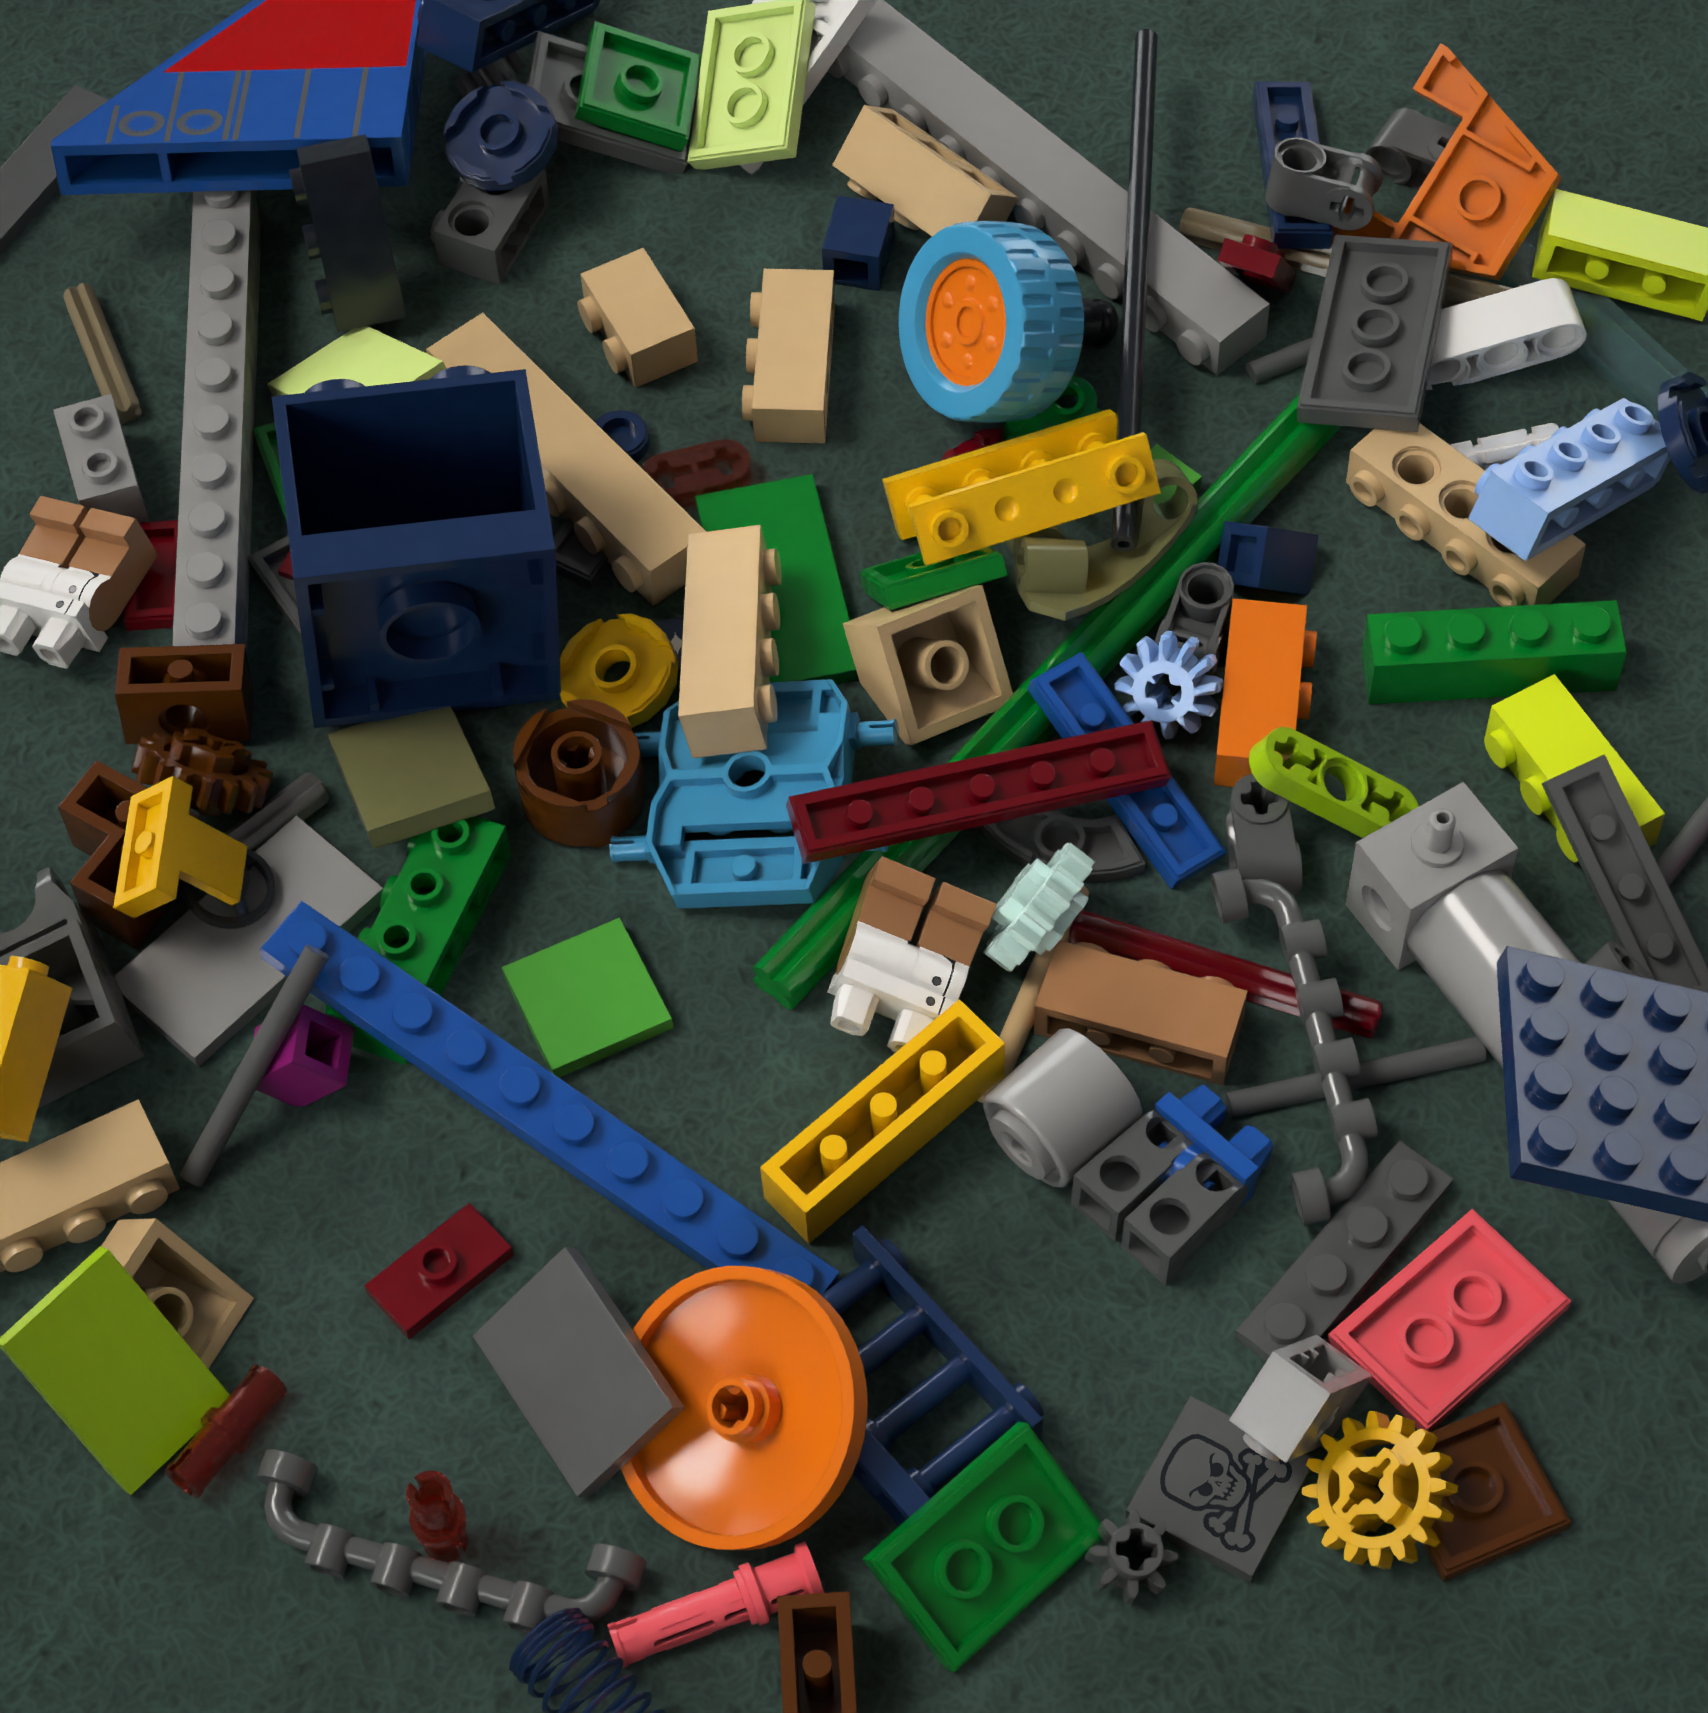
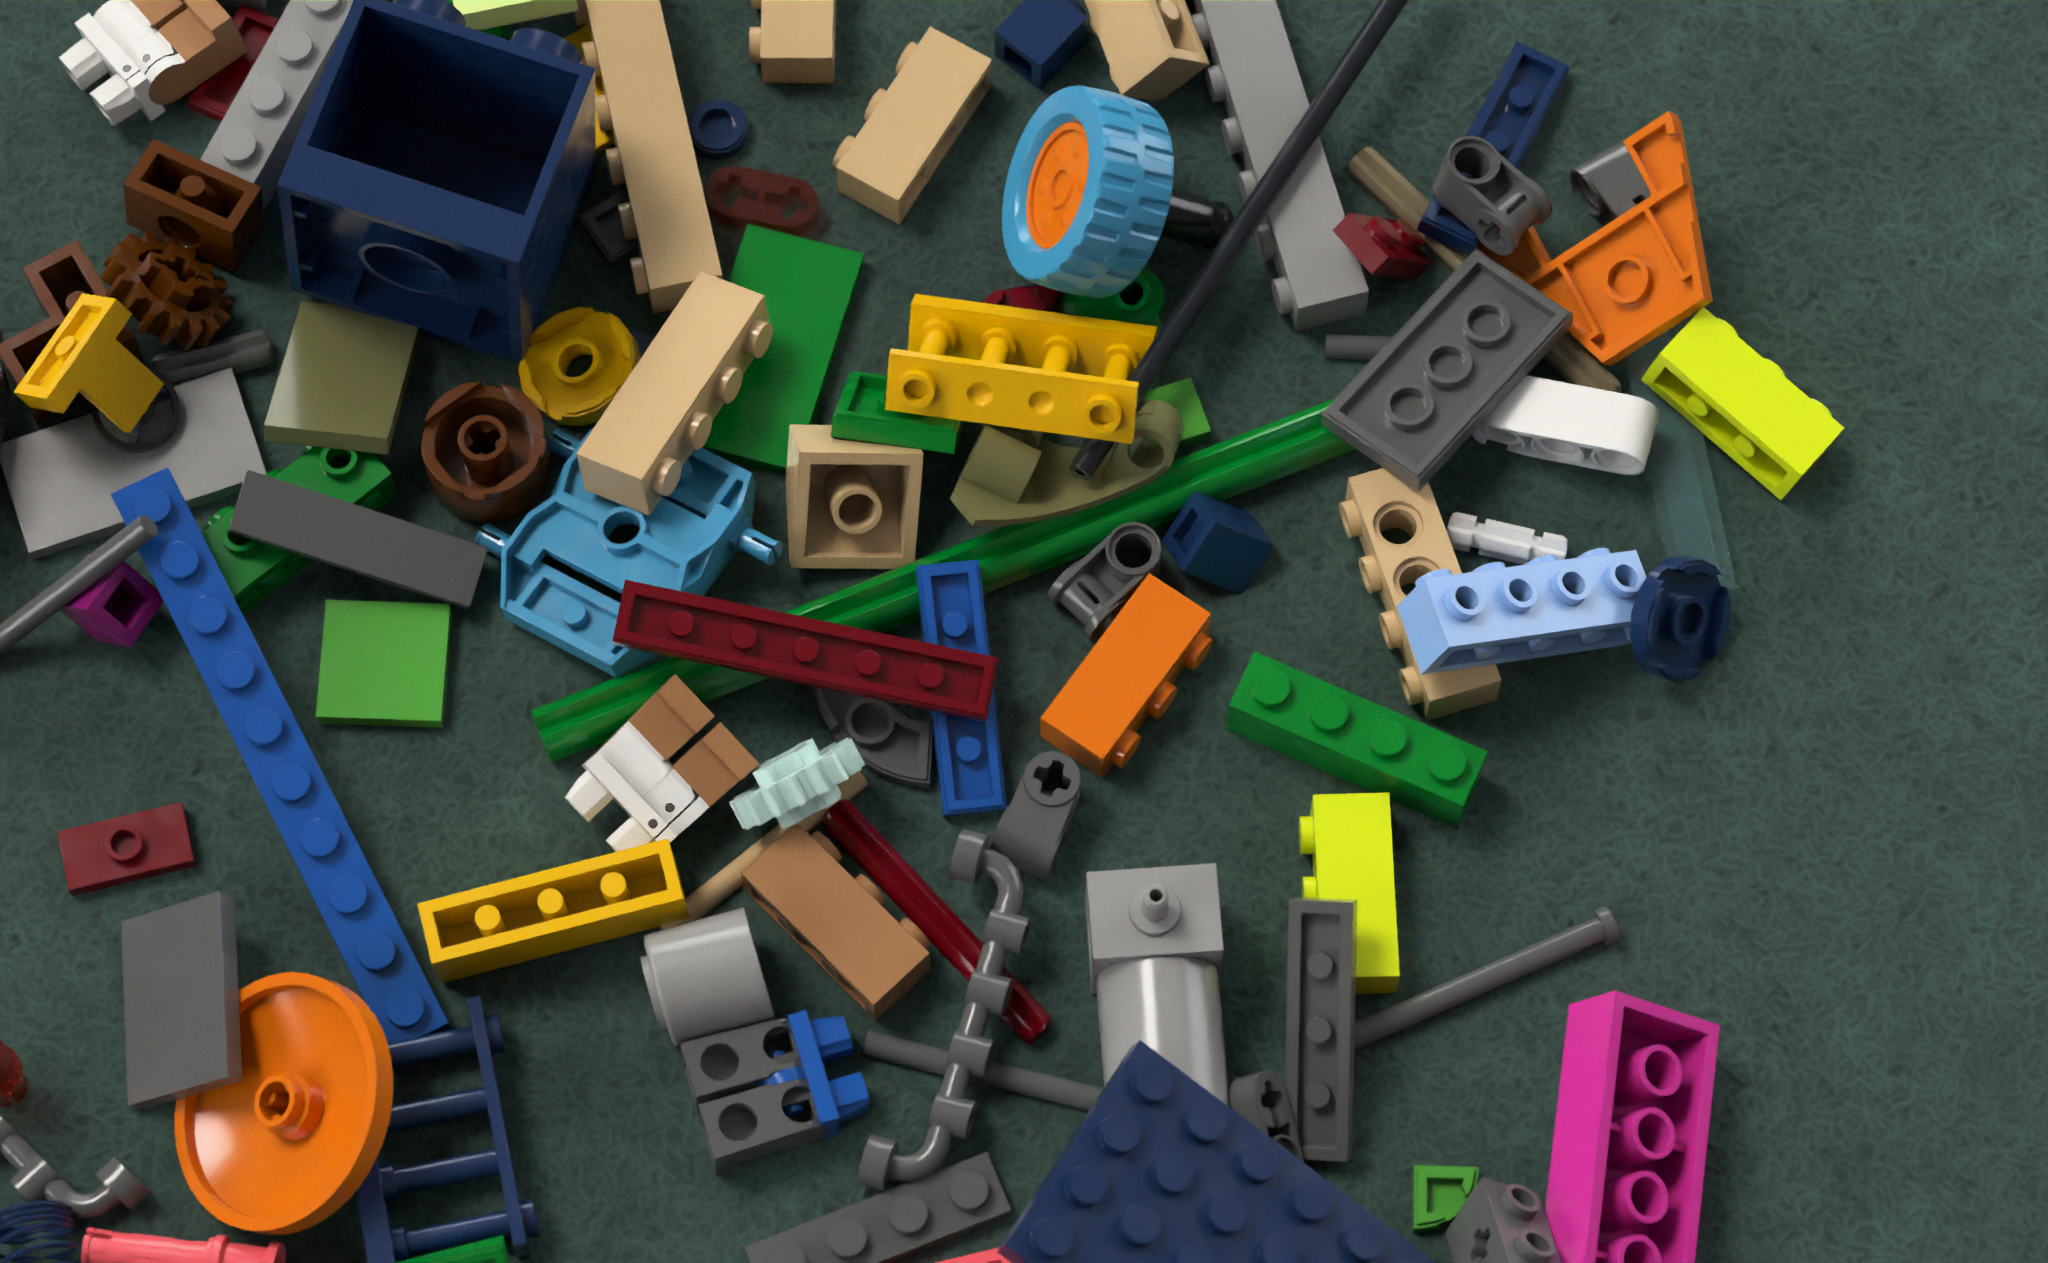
camera: 25 degrees right, 10 degrees up
(507, 893) = (357, 539): none -> dark grey tile
(1183, 671) = (1044, 627): light blue gear -> none
(1307, 785) = (1106, 756): lime beam -> none

